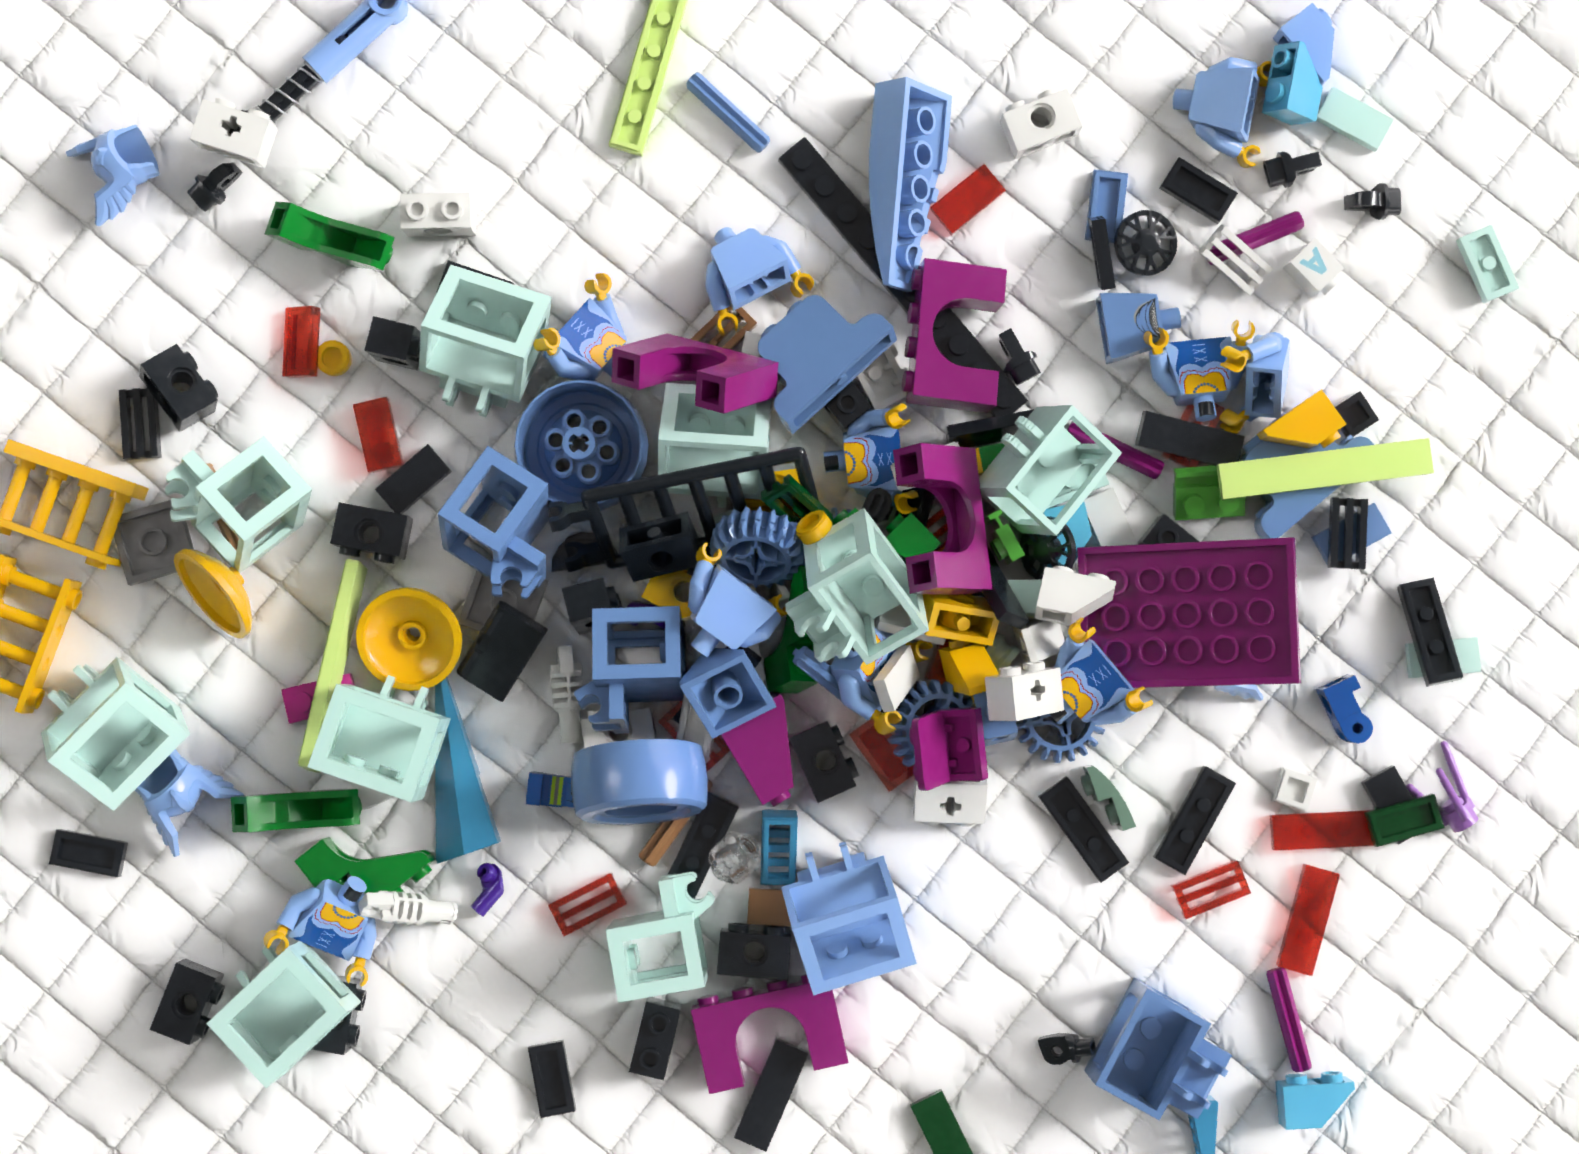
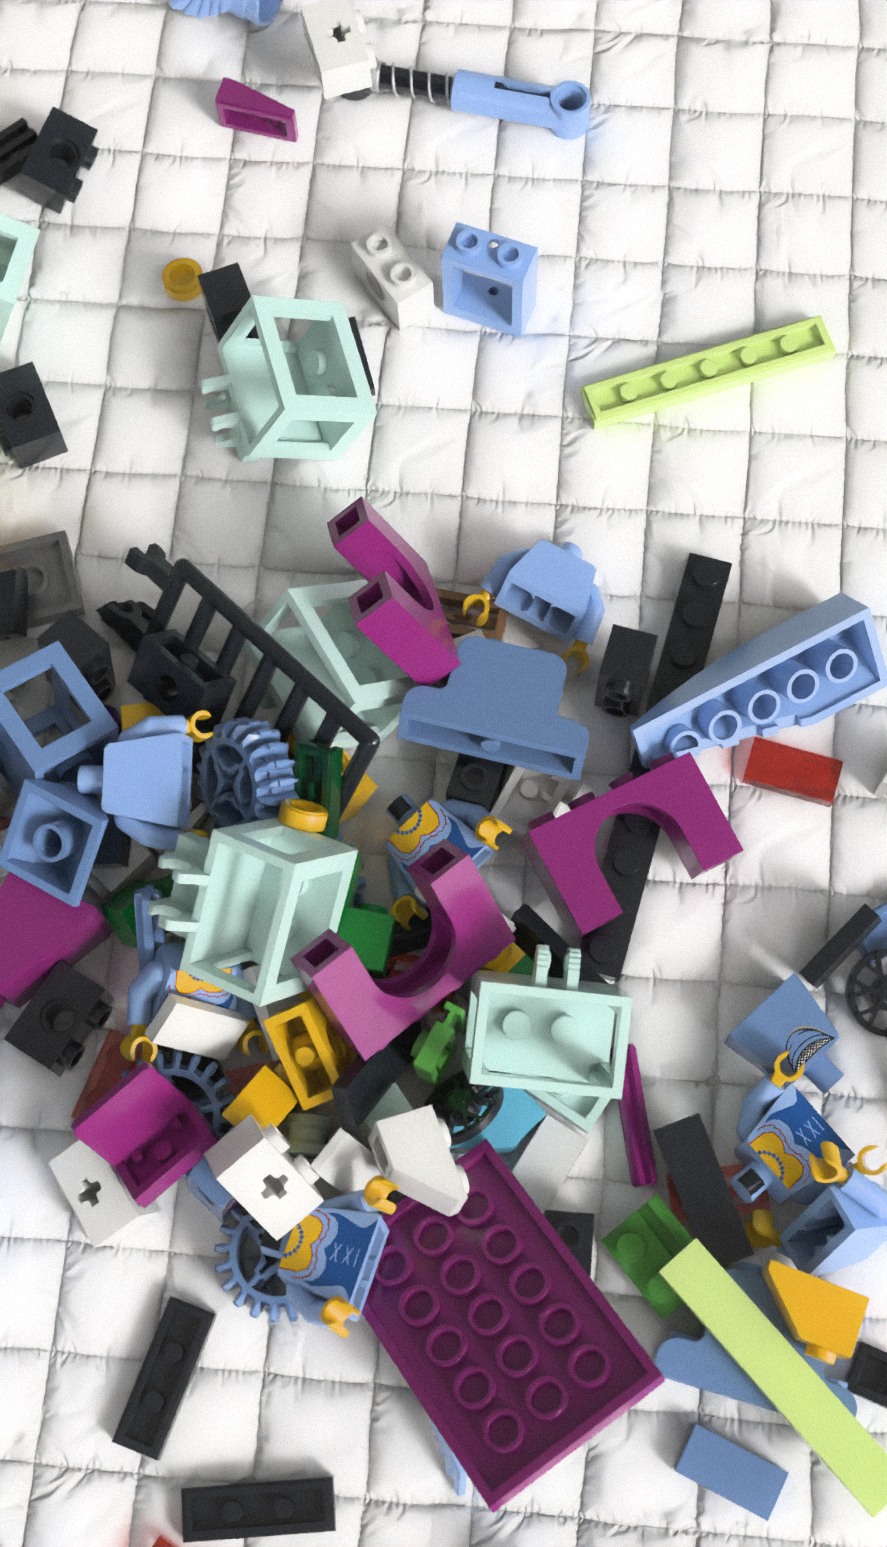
camera: 60 degrees right, 15 degrees down
(211, 188) = (282, 77): black piece -> none
(230, 225) = (254, 112): none -> magenta slope
(301, 342) = (178, 239): clear red tile -> none
(333, 238) = (297, 192): green arch -> none
(378, 435) = (131, 362): clear red plate -> none
(413, 480) = (107, 424): black tile -> none
(499, 157) = (483, 299): none -> light blue window
(511, 544) = (97, 523): medium blue piece -> none
(586, 341) = (344, 472): torso -> none
(593, 403) = (230, 505): medium blue wheel -> none
(728, 112) = (700, 477): medium blue axle -> none
(838, 259) = (625, 671): none -> black brick
(878, 505) = (382, 884): black piece -> none
(1021, 363) = (654, 942): black piece -> none
(1101, 788) = (225, 1364): sand green slope -> none
(1361, 533) = (764, 1439): black tile -> none

